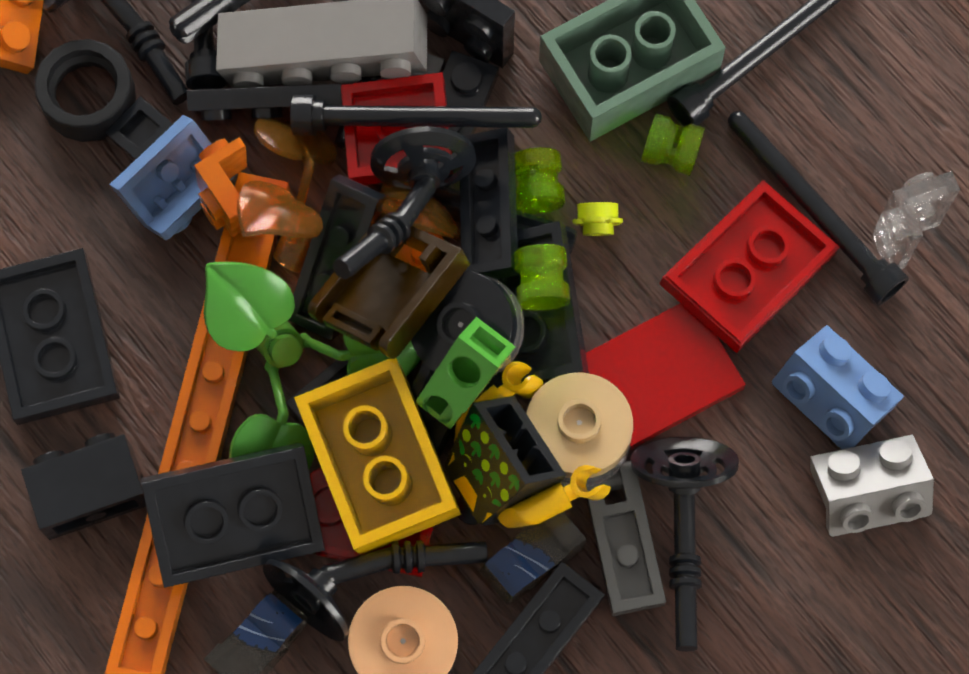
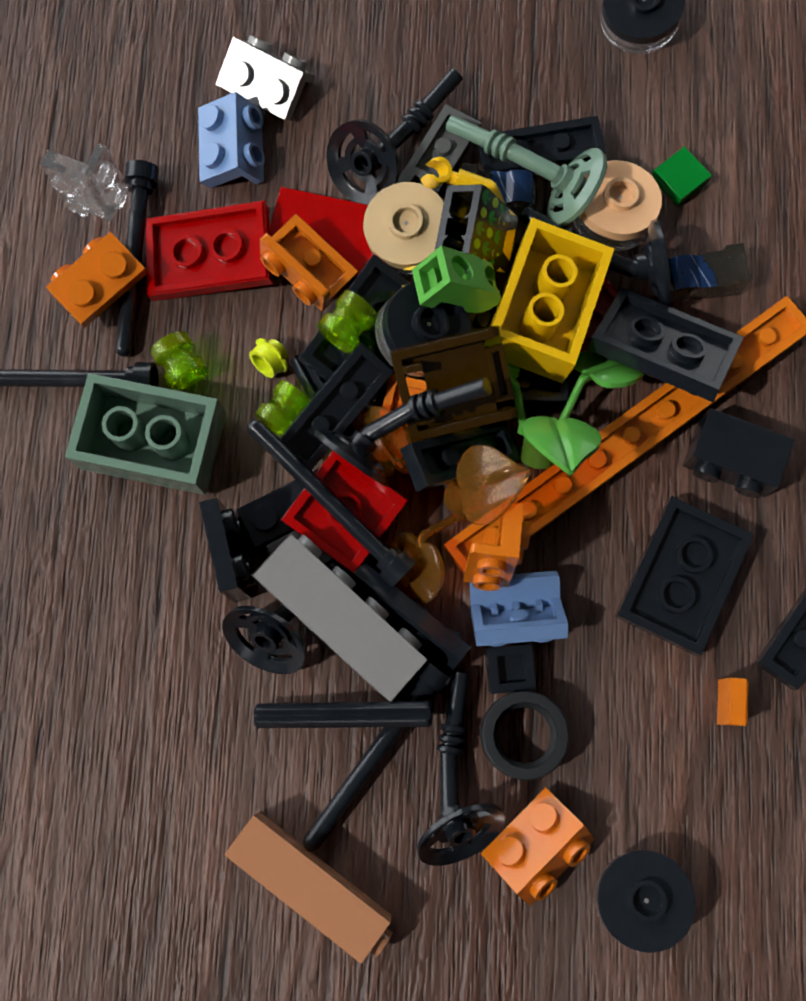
camera: 135 degrees left, 5 degrees up
(470, 605) = (576, 189): none -> sand green dish
(638, 313) = (307, 263): none -> orange bracket
(817, 147) = (96, 278): none -> orange bracket

